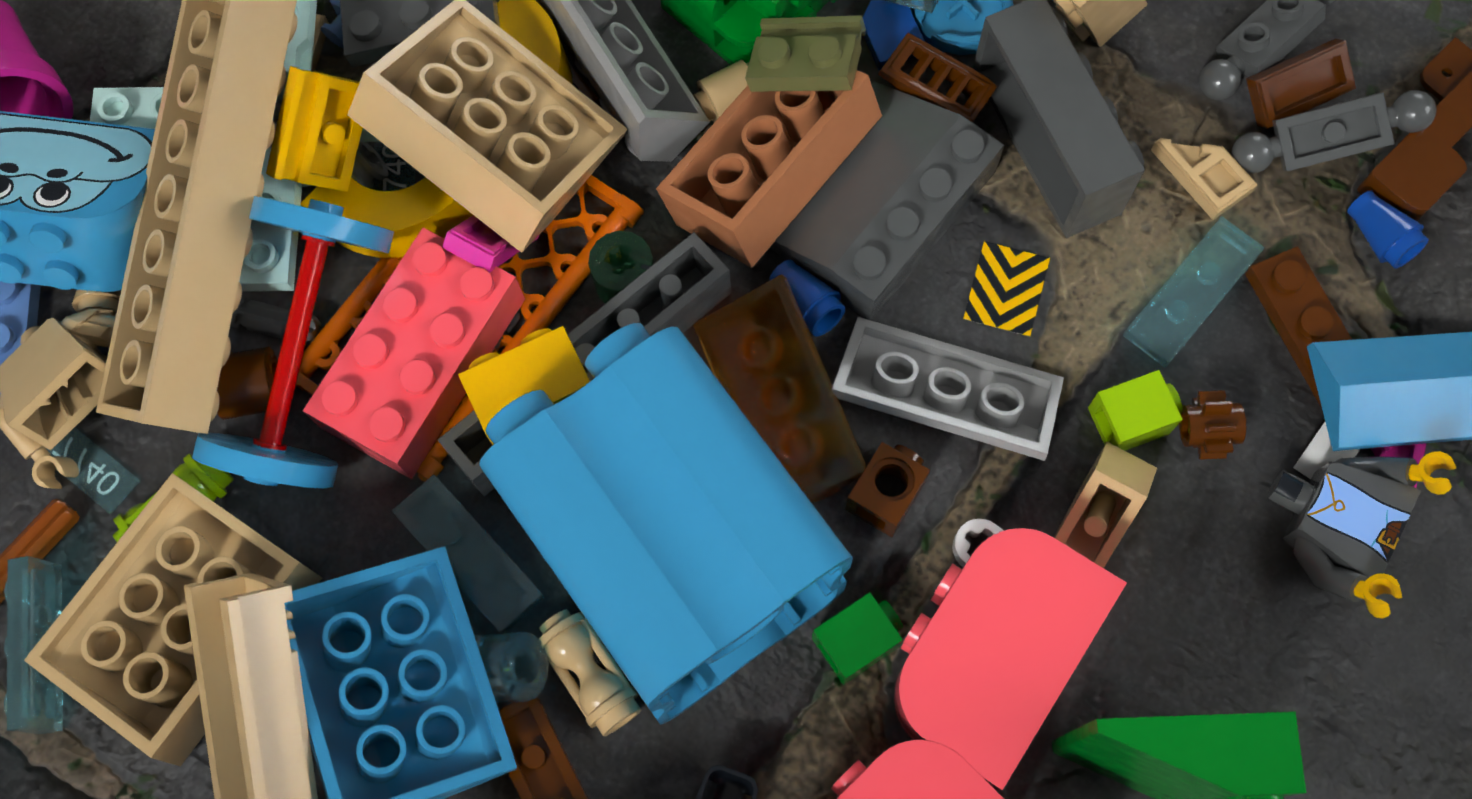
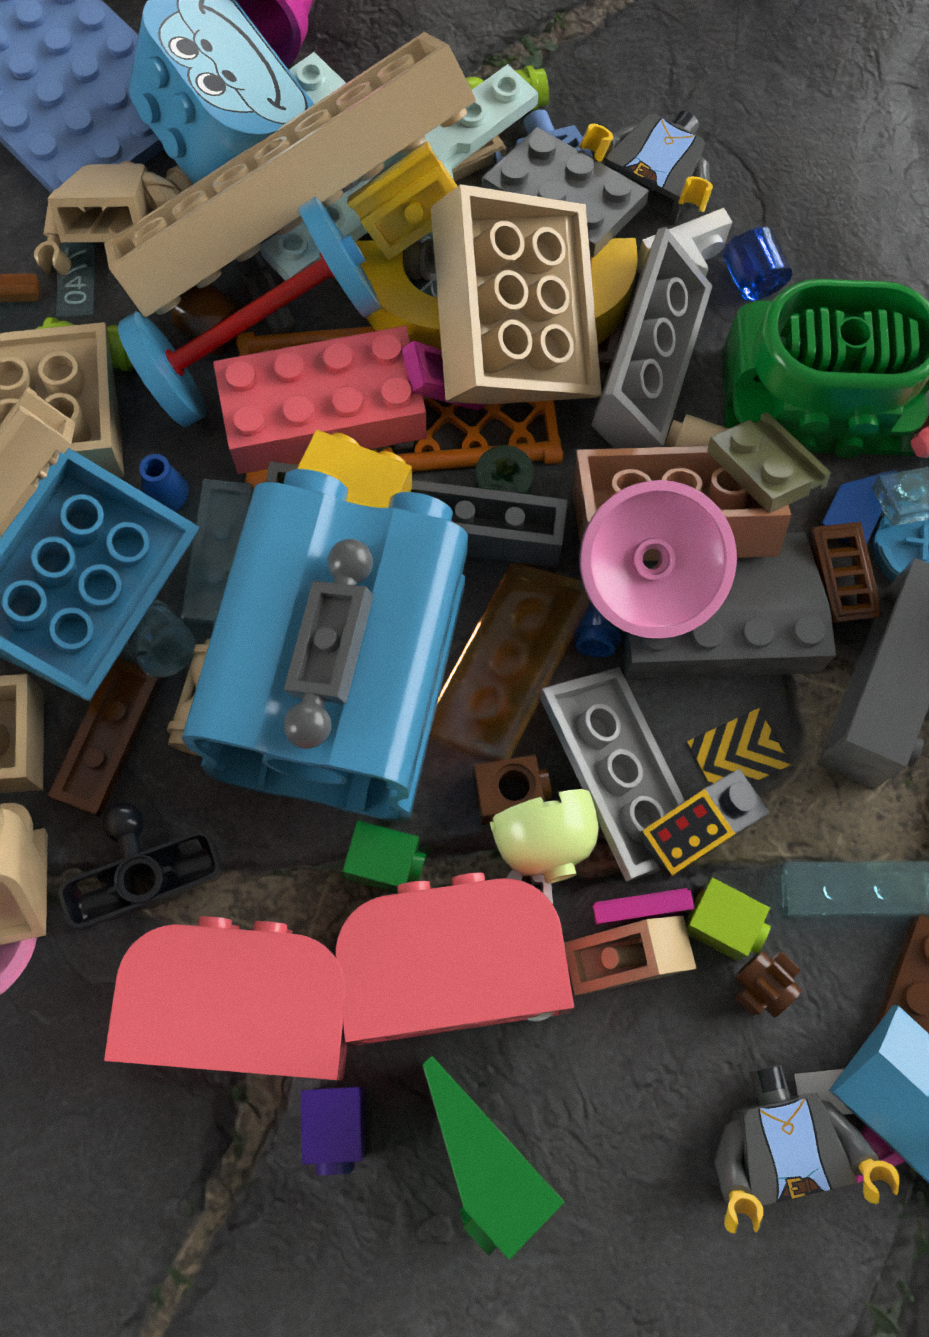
camera: 40 degrees right, 0 degrees up
(376, 548) = (163, 482): none -> blue cone
(684, 513) = (328, 643): none -> dark grey plate
(847, 197) = (692, 568): none -> bright pink dish
(958, 489) = (547, 835): none -> yellowish green cylinder
(1049, 361) = (703, 823): none -> black slope
(1075, 464) = (643, 907): none -> dark pink tile

